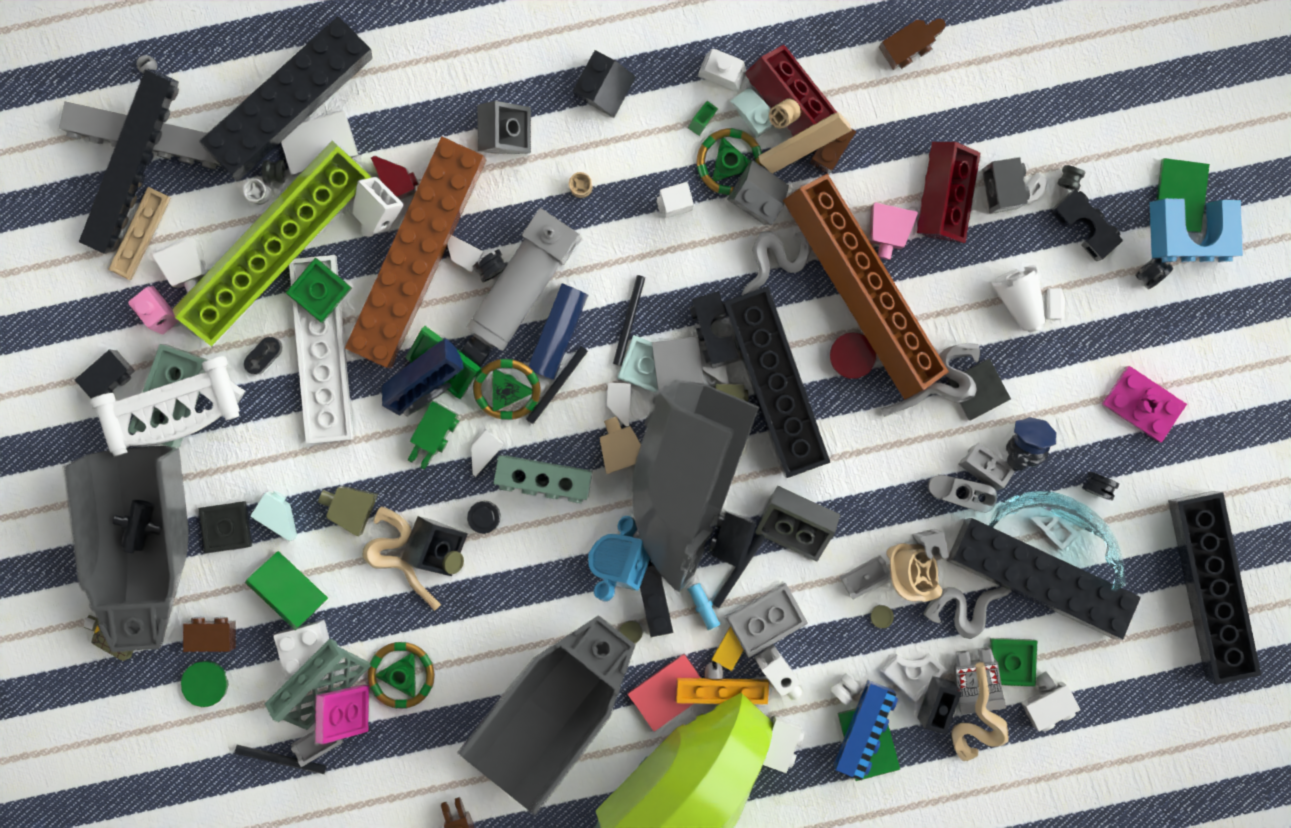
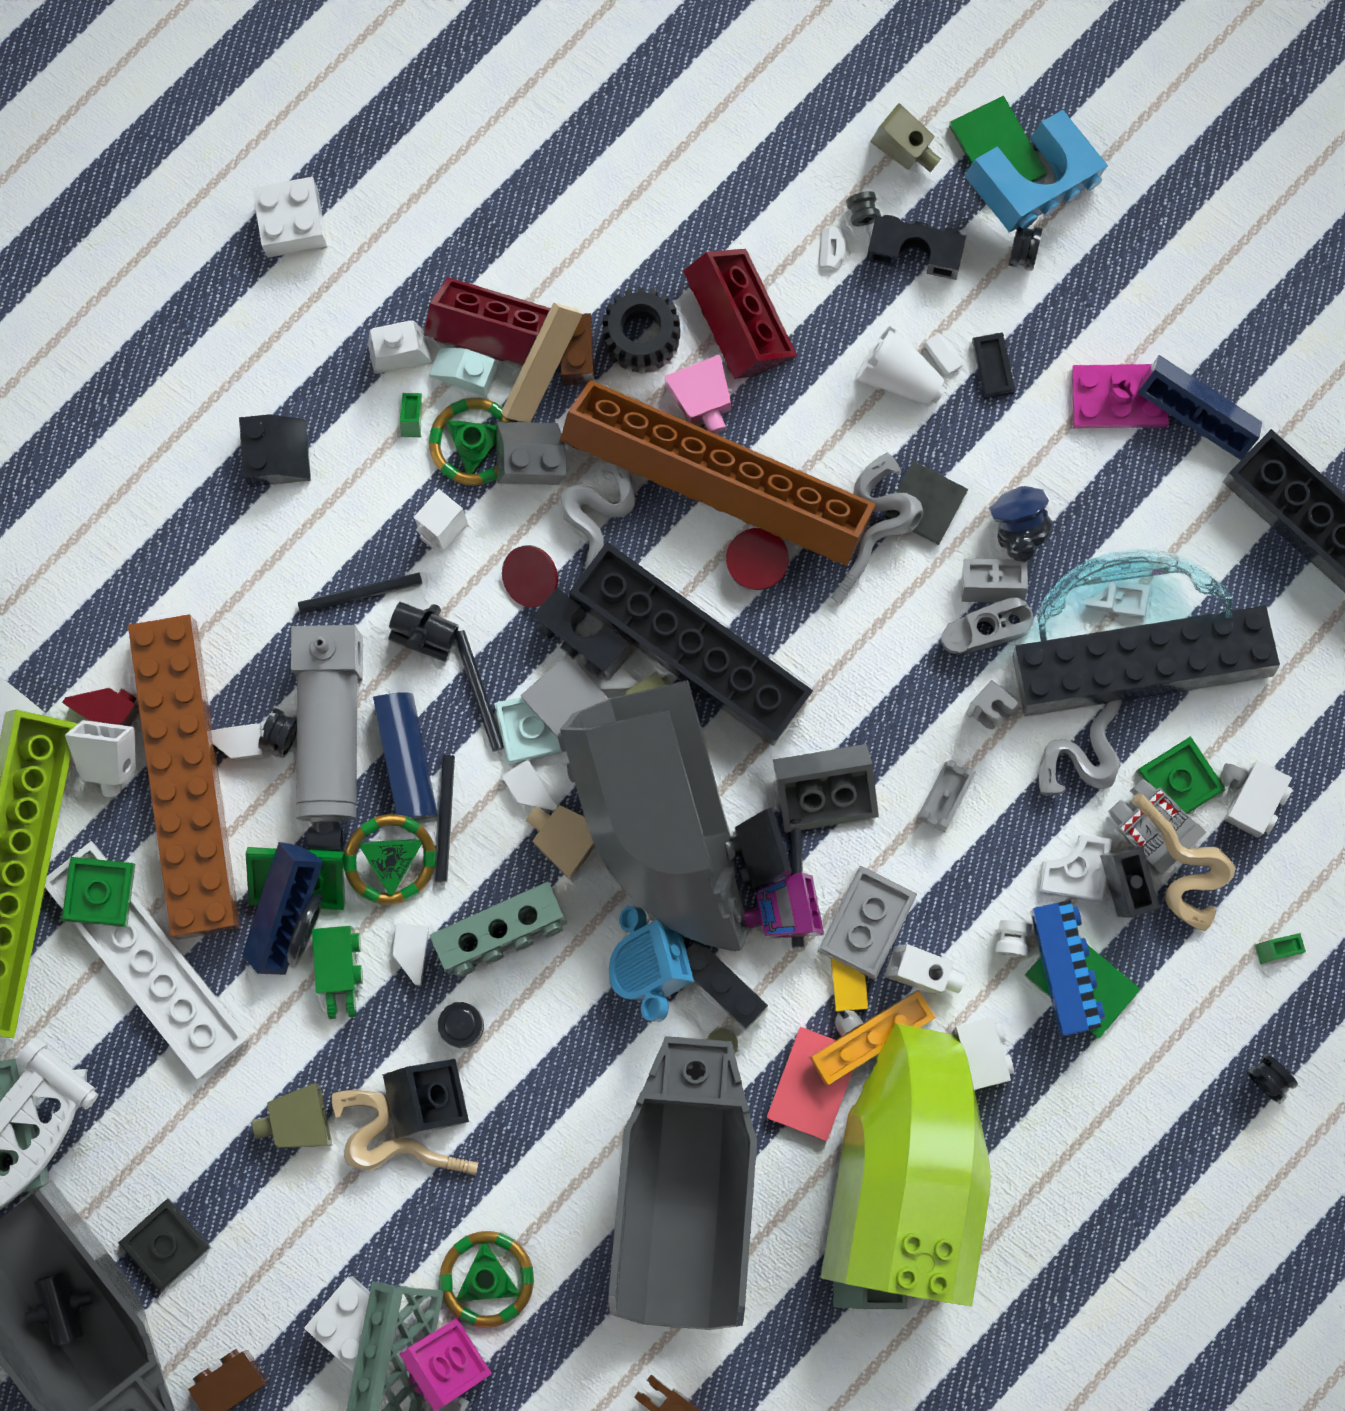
camera: 30 degrees left, 10 degrees down
(259, 352) = (73, 1011): black beam -> none
(276, 515) = (214, 1186): light aqua slope -> none
(286, 590) = (285, 1266): green tile -> none
(453, 562) = (460, 1102): olive piece -> none
(504, 128) = (193, 572): dark grey slope -> none
(580, 181) = (320, 571): tan wheel -> none
(597, 210) = (360, 593): none -> black piece
(620, 261) = (423, 630): none -> black pin
(703, 606) = (784, 955): medium azure pin -> none
(707, 271) = (529, 575): none -> dark red piece
(723, 582) = (787, 909): none -> magenta torso
(784, 113) = (497, 345): tan wheel -> none
(882, 616) = (996, 829): olive piece -> none
(894, 148) = (635, 306): none -> black tyre
(910, 42) = (585, 182): reddish brown hinge -> none
(913, 572) = (994, 751): tan piece -> none
(999, 800) = (1280, 948): none -> green piece
(1005, 185) = (795, 262): dark grey brick -> none
(1080, 331) = (993, 365): none -> black tile
(1100, 486) = (1135, 515): black wheel -> none
(1129, 152) = (906, 140): none -> olive torso
(1188, 447) = (1200, 407): none -> dark blue brick

